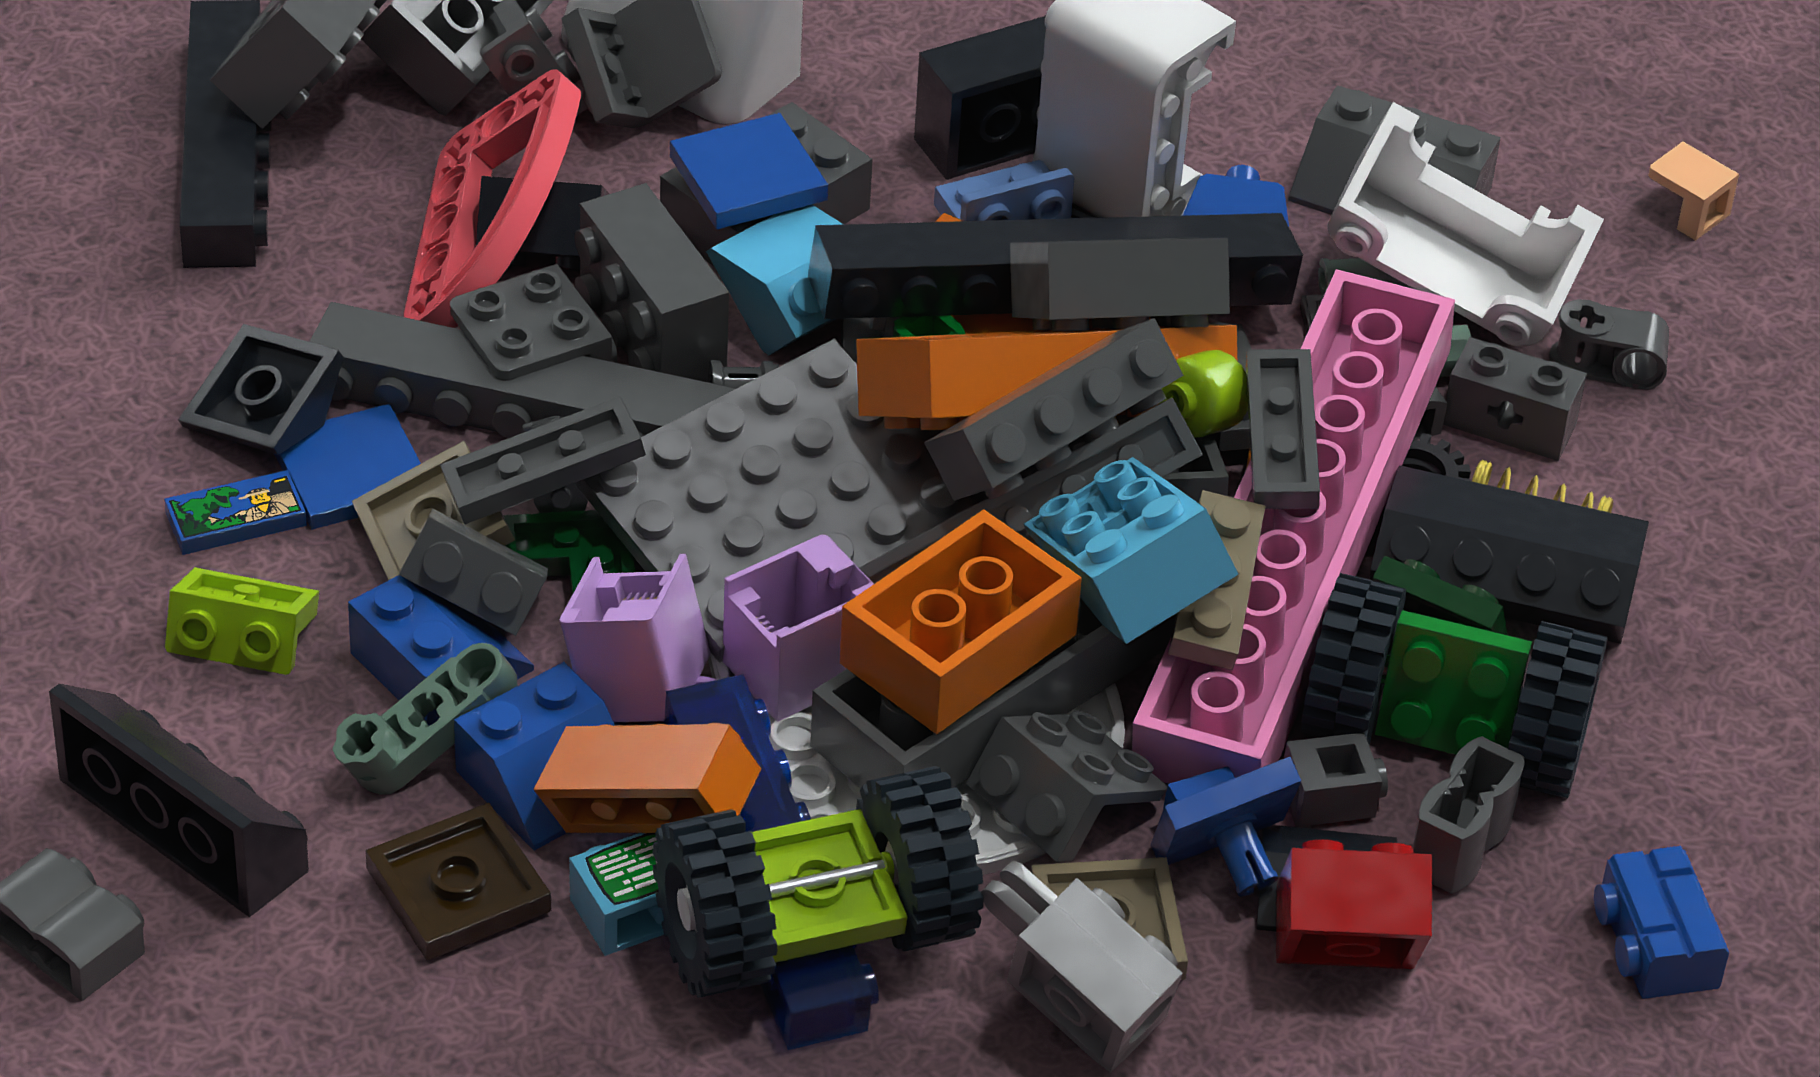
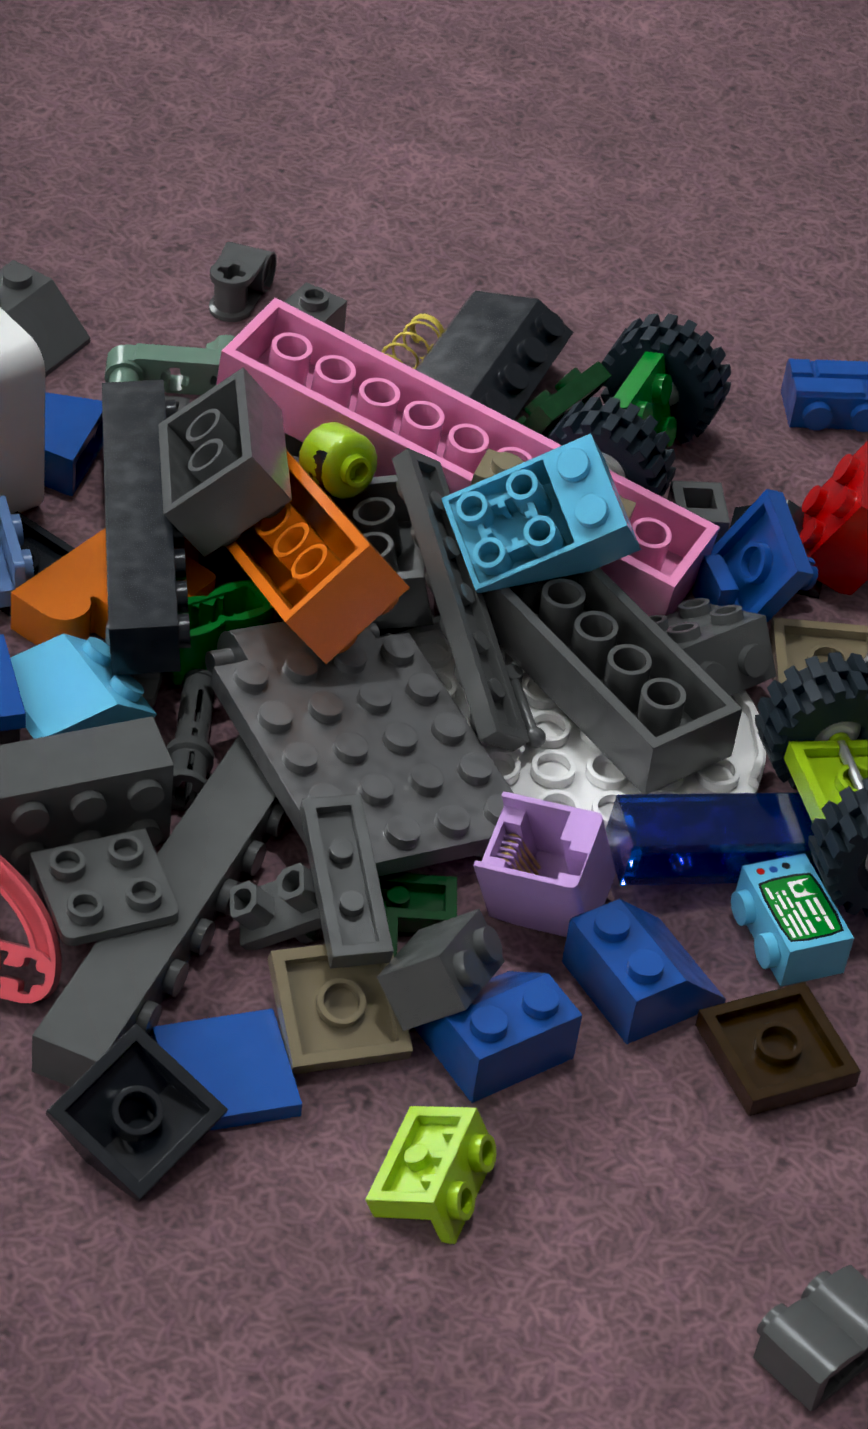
camera: 85 degrees left, 0 degrees up
(176, 798) = (691, 1227): black slope -> none
(235, 512) = (277, 1168): tile -> none
(399, 744) = (599, 990): sand green beam -> none
(644, 776) = (737, 868): orange brick -> none
(787, 622) = (551, 746): lavender piece -> none
(959, 621) = (629, 625): orange brick -> none
(1053, 410) = (402, 519): dark grey brick -> none
(1282, 428) = (409, 417): dark grey plate -> none
(1456, 240) = (146, 307): white windscreen -> none
(1468, 812) = (744, 452): dark grey brick -> none
(1702, 182) = (72, 187): light nougat panel -> none

